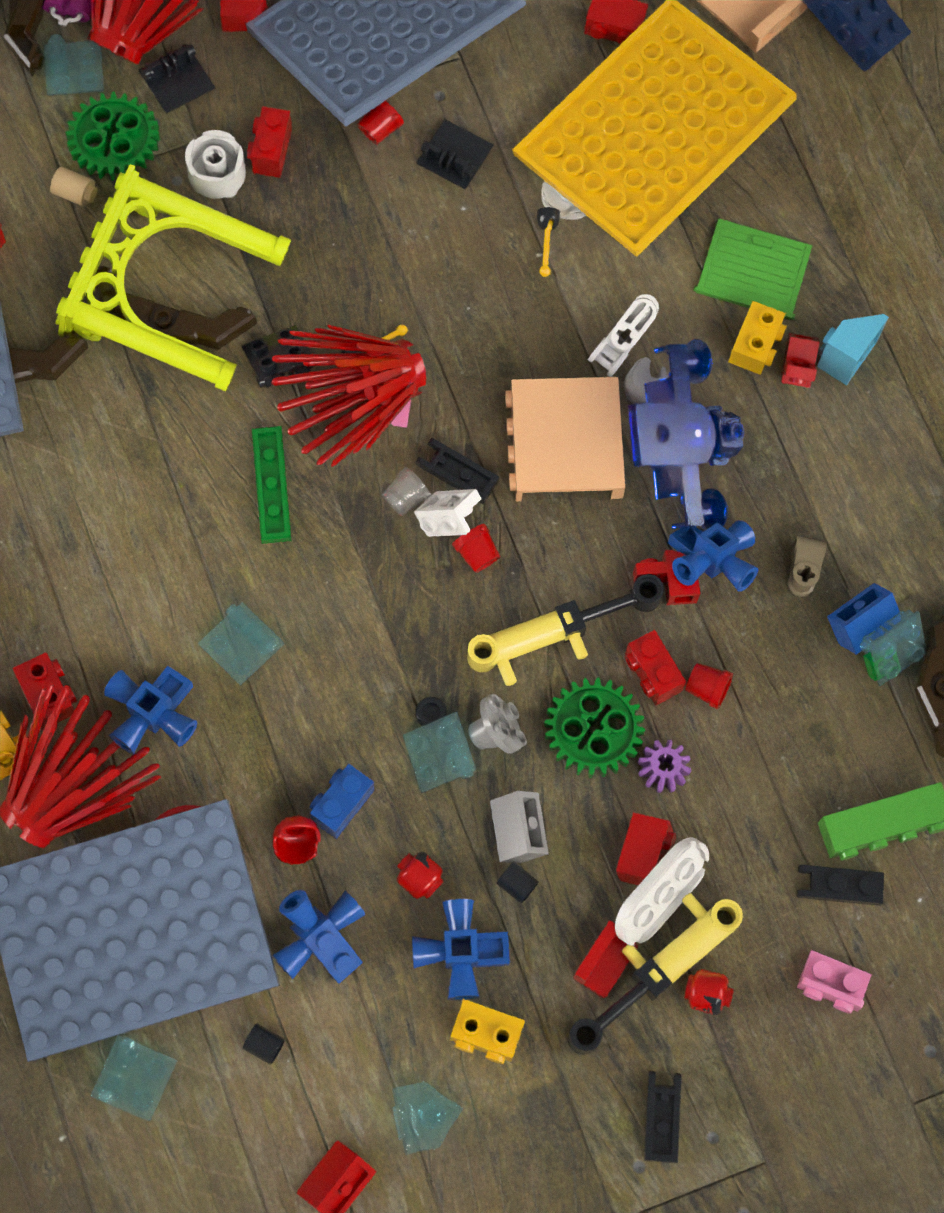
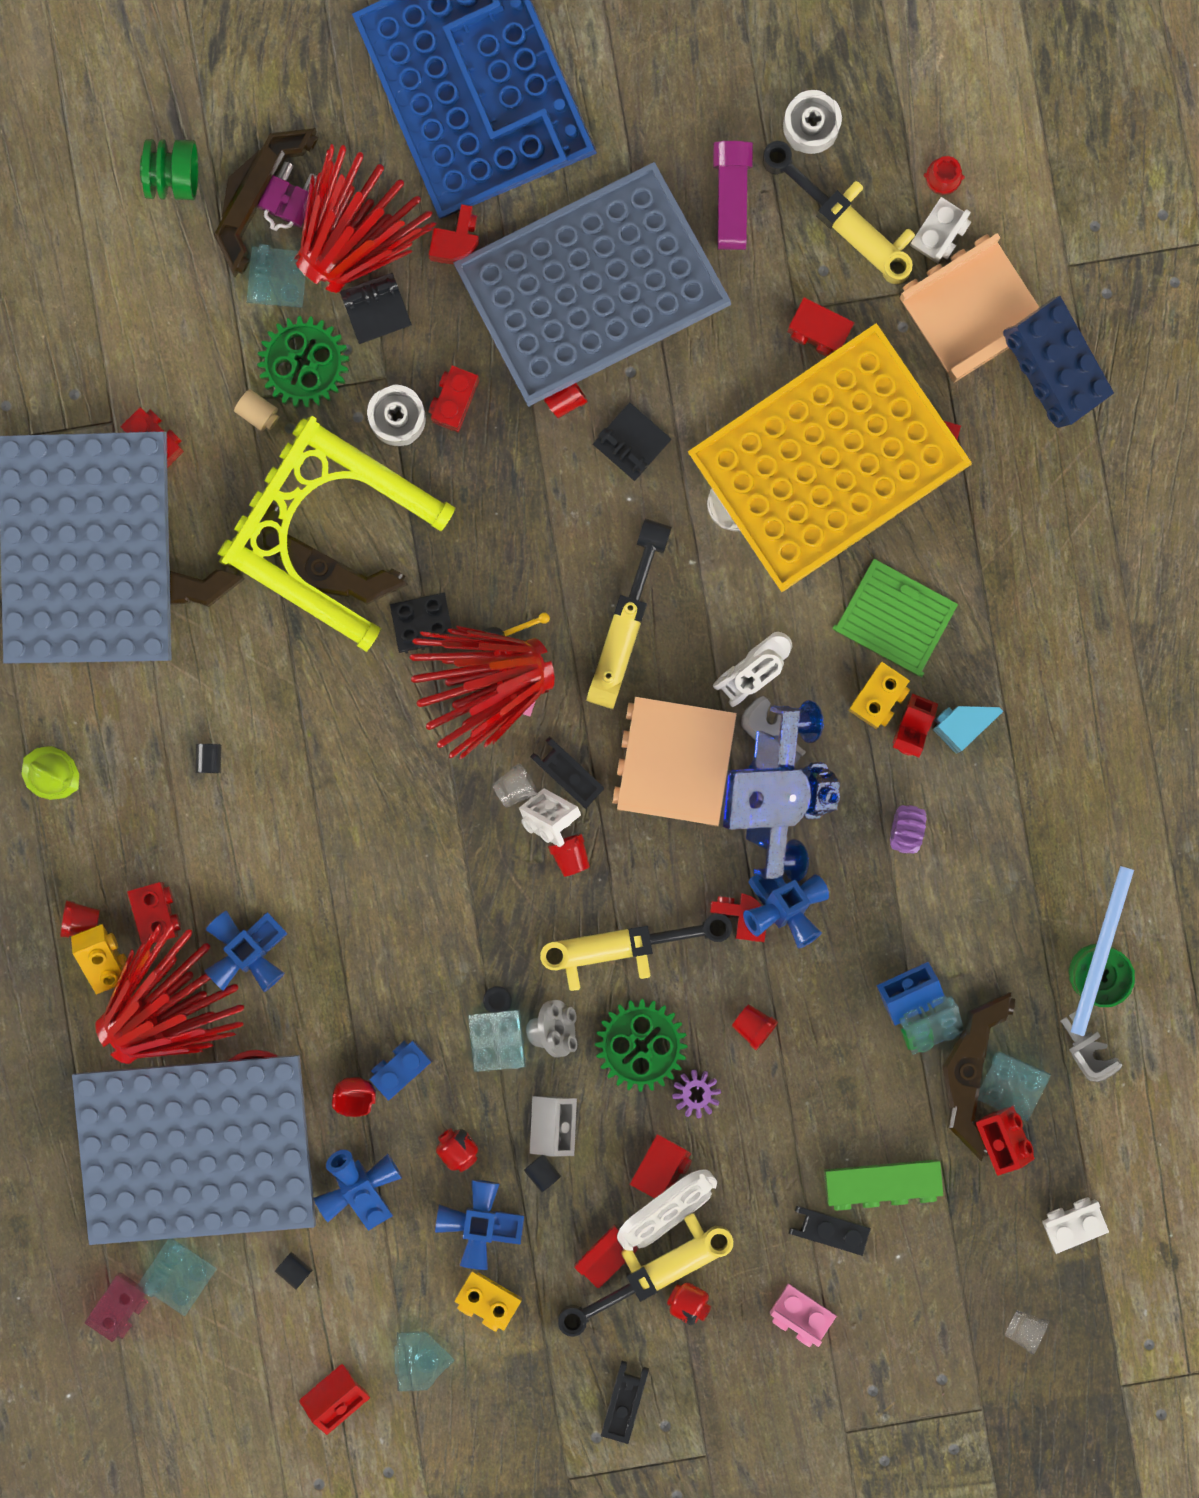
camera: 15 degrees right, 15 degrees up
(71, 1125) = (117, 1307): none -> clear pink brick
(78, 524) = (208, 758): none -> black beam
(241, 643) = (337, 901): clear light blue hinge -> none
(271, 485) = (392, 751): green tile -> none
(486, 315) = (626, 621): none -> light yellow piece
(548, 220) = (706, 532): hinge -> none
(654, 667) = (708, 1001): red brick -> none
(806, 562) = (873, 923): dark tan piece -> none
(819, 457) = (908, 829): none -> medium lavender gear

